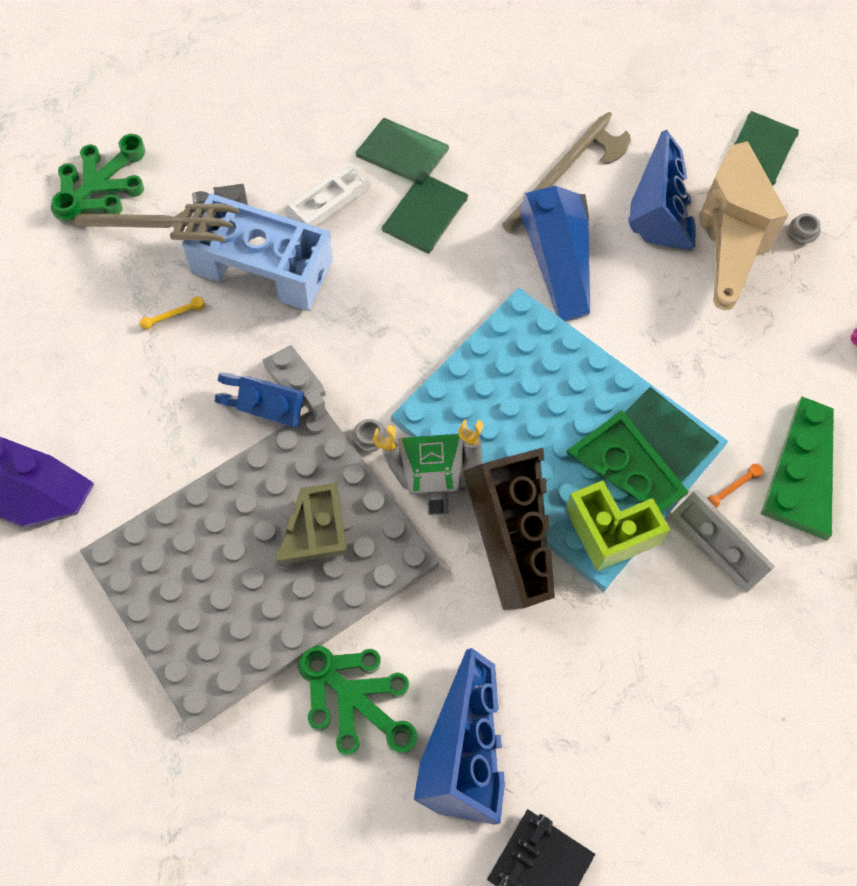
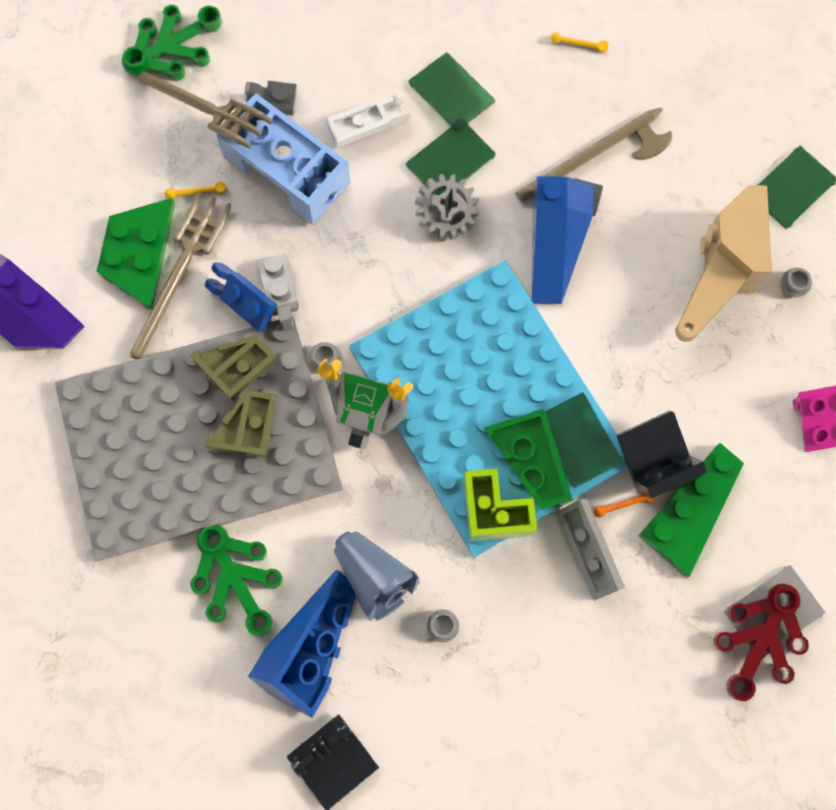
camera: 20 degrees right, 10 degrees up
(126, 388) = (136, 249): none -> green wing
(186, 369) = (191, 247): none -> dark tan piece
(279, 467) = (235, 364): none -> olive wing
(437, 263) = (434, 205): none -> light grey gear
(510, 640) = (374, 575): none -> sand blue cone
(514, 526) = (410, 480): dark brown wedge -> none
(530, 76) = (601, 46): none -> yellow hinge
(602, 672) = (442, 625): none -> light grey plate
(661, 198) = (669, 217): blue wedge -> none
(749, 426) = (658, 455): none -> black bracket

